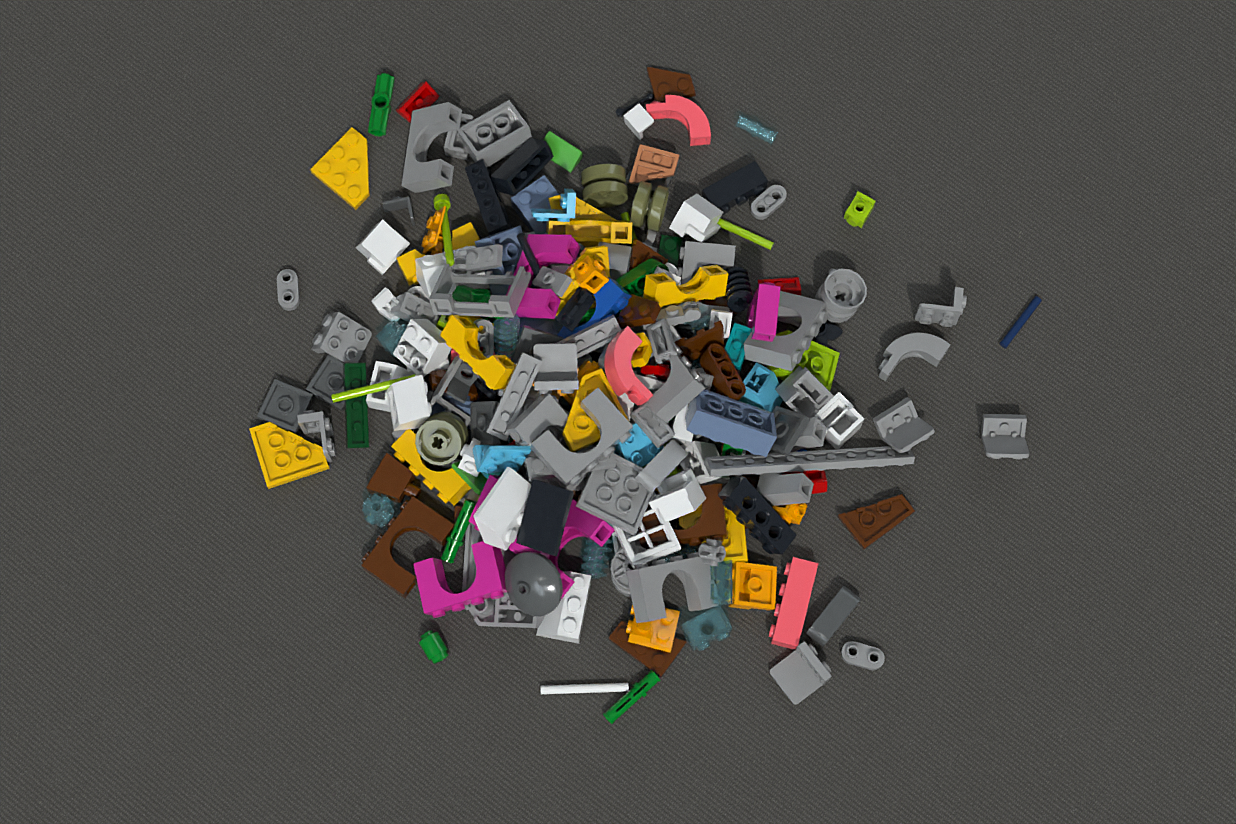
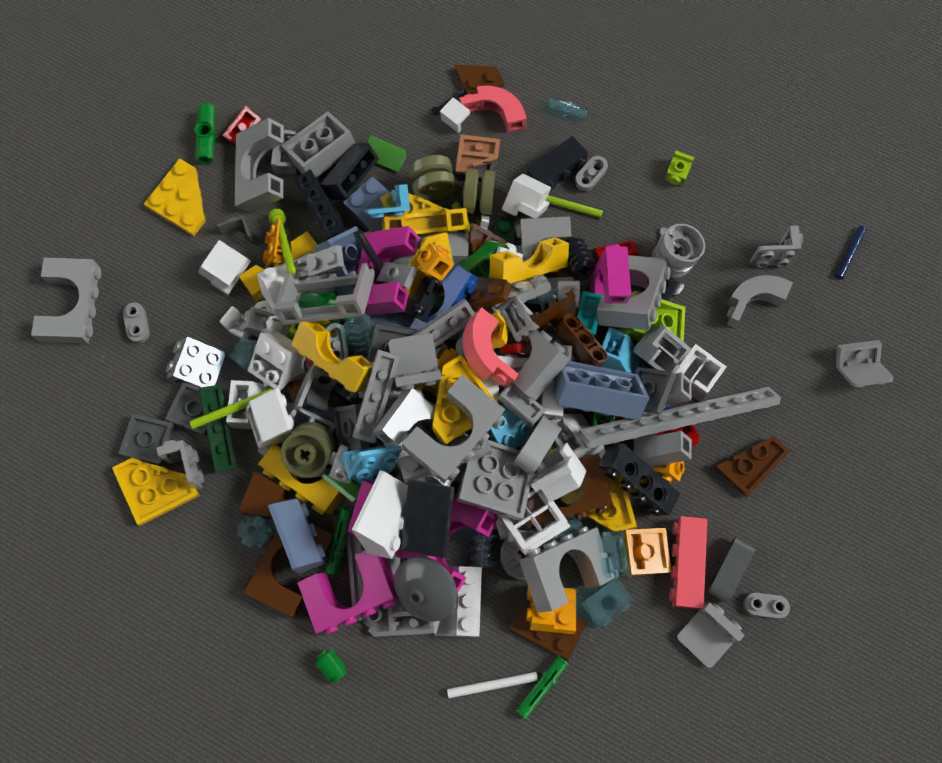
camera: 10 degrees left, 0 degrees up
(228, 284) = (77, 324): none -> light grey arch
(420, 517) = (297, 535): none -> sand blue slope
(712, 552) = (602, 525): light grey gear -> none
(902, 427) = (761, 370): light grey bracket -> none

